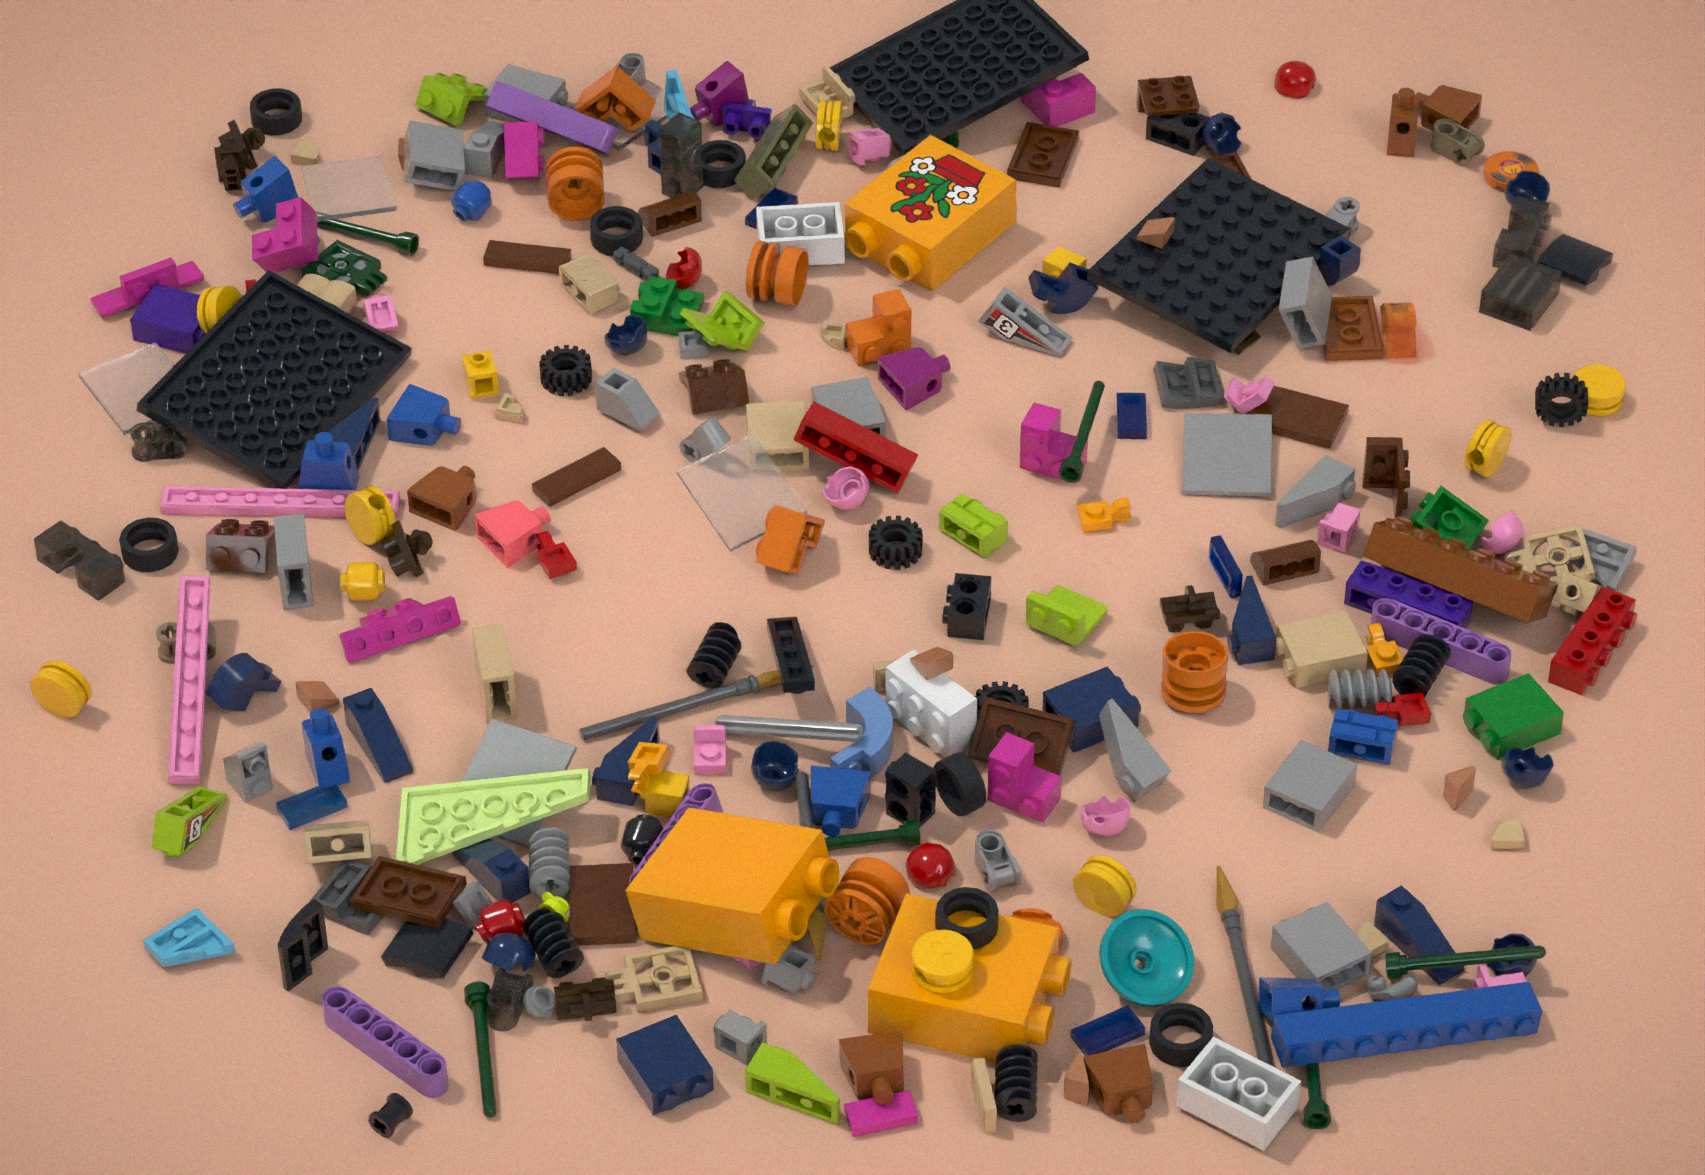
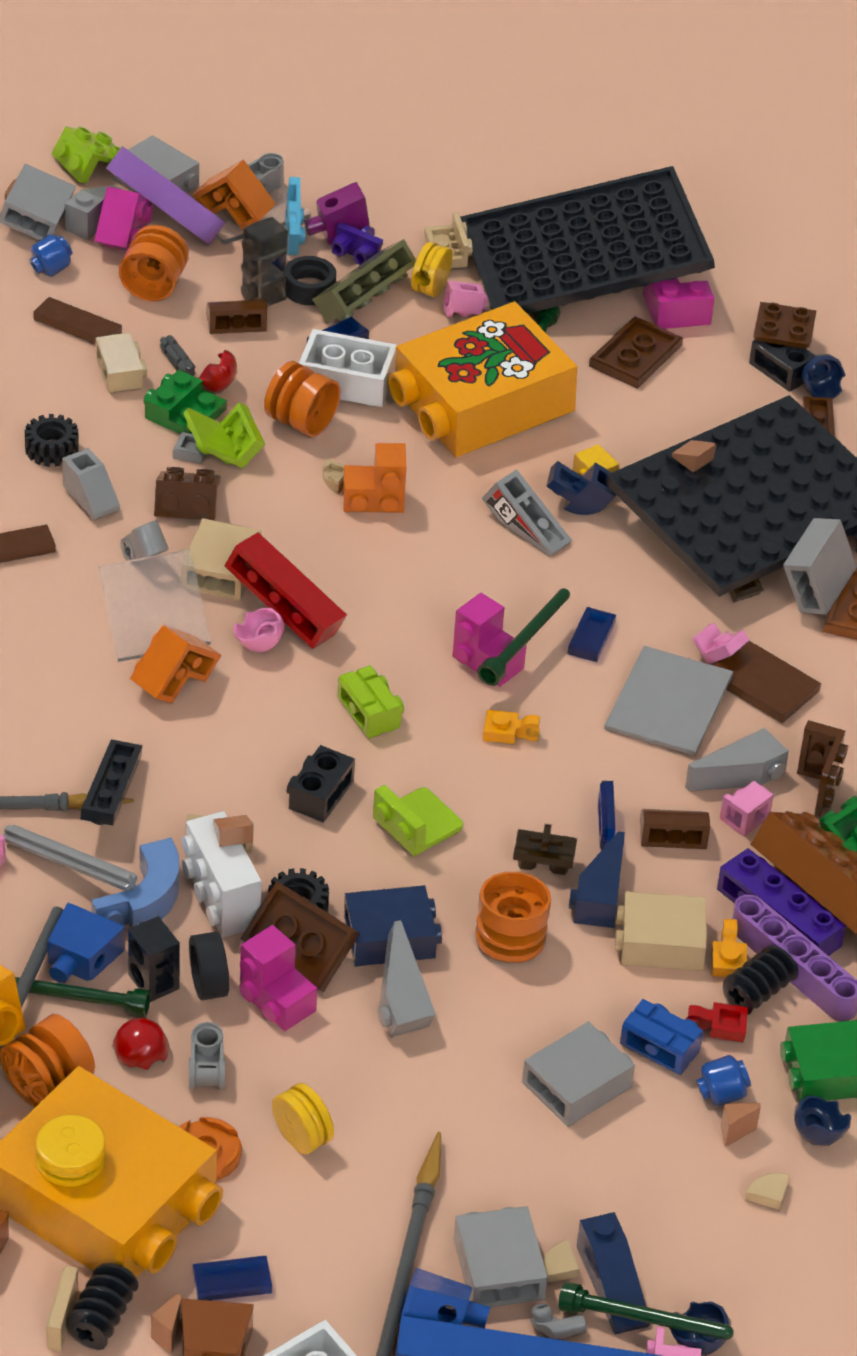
camera: 15 degrees right, 0 degrees up
(616, 217) = (179, 306): black tyre -> none
(628, 337) = (127, 424): dark blue hair -> none
(715, 655) = (37, 762): black piece -> none
(774, 765) = (35, 891): dark blue hair -> none
(854, 401) = (309, 548): light grey brick -> none
(895, 554) = (282, 685): black tyre -> none
(912, 375) = (388, 534): magenta torso -> none
(971, 900) = (128, 1090): black tyre -> none
(1106, 817) = (346, 1044): bright pink hair -> none
(1160, 948) = (326, 1196): teal dish -> none
(1182, 1015) = (303, 1281): black tyre -> none
(1189, 384) = (666, 618): dark grey slope -> none
(1358, 687) = (682, 984): light grey piece -> none
(1432, 757) = (724, 1080): none -> blue head

